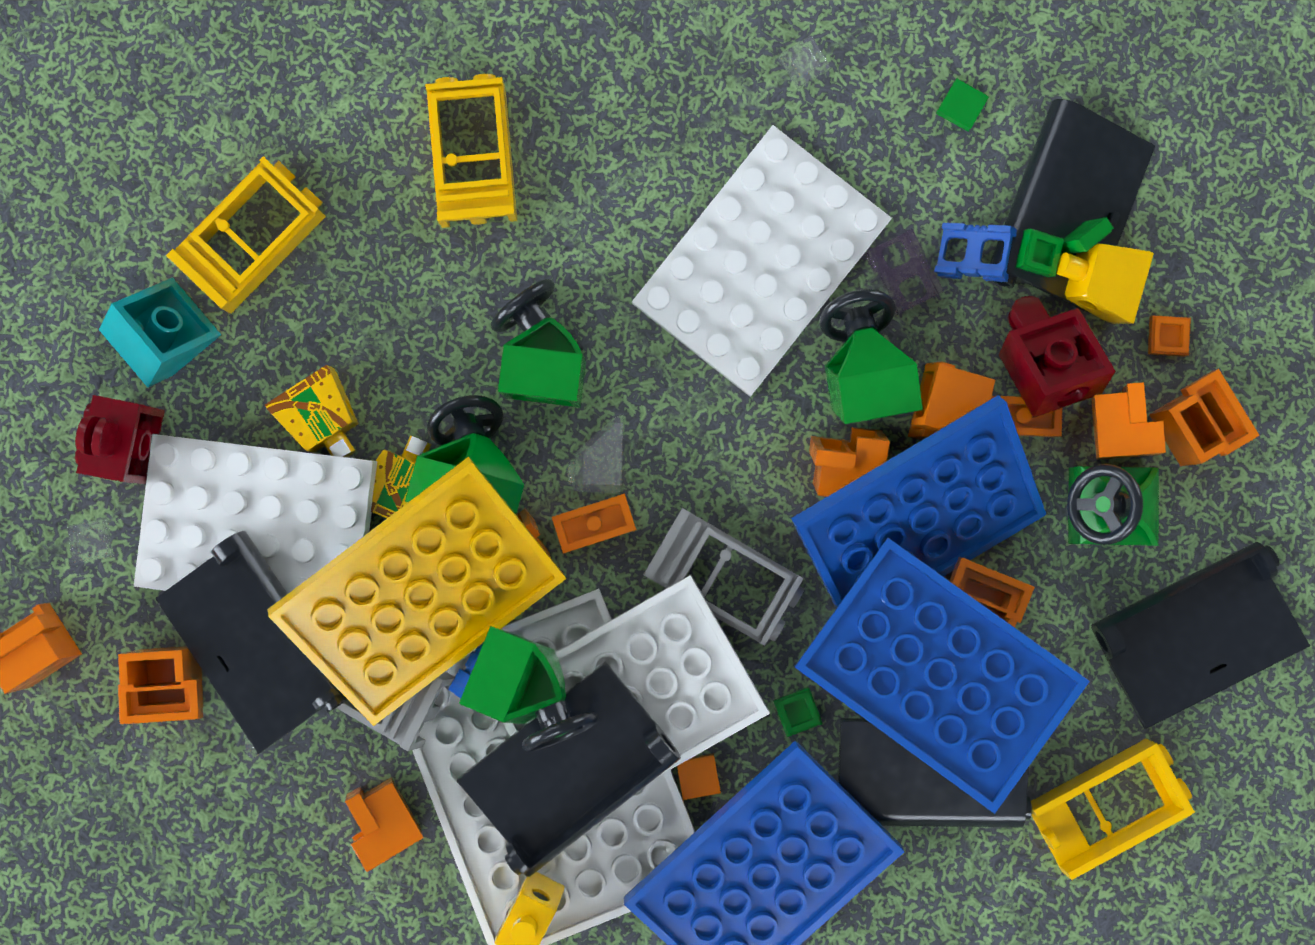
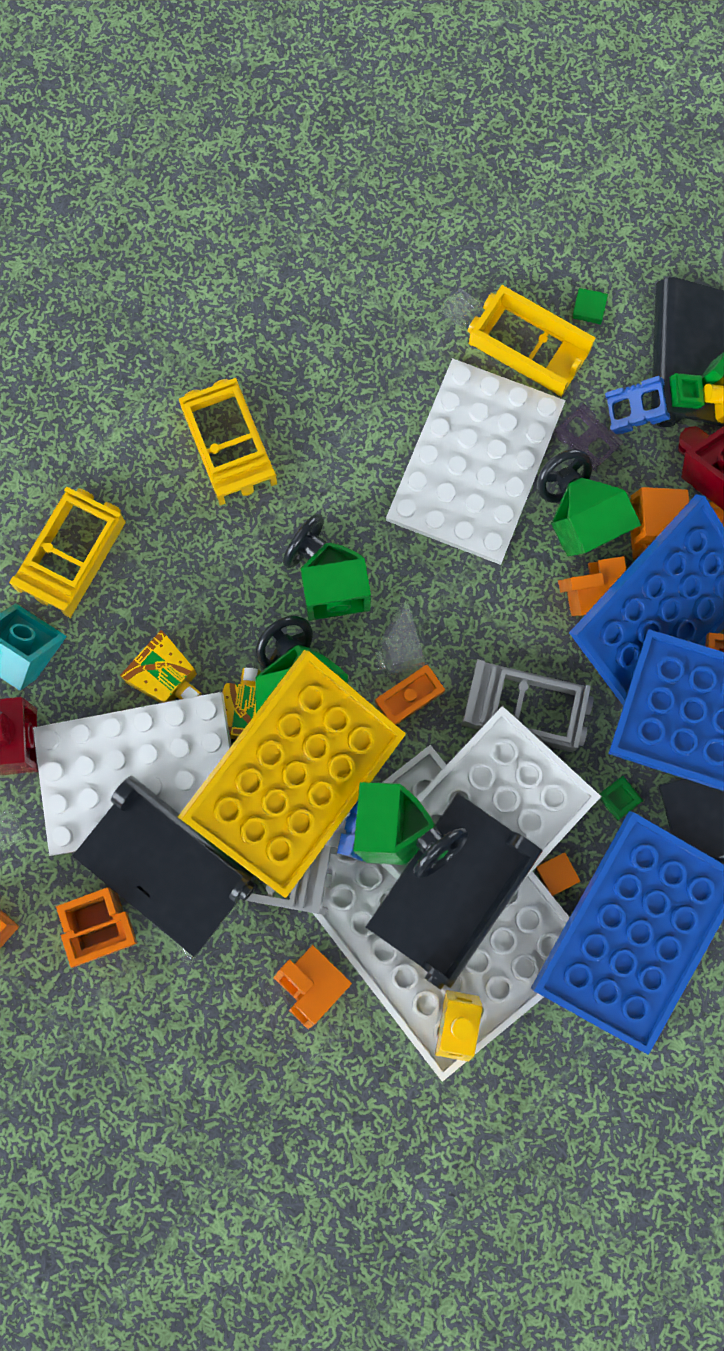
camera: 15 degrees left, 10 degrees down
(911, 165) = (566, 361): none -> yellow door

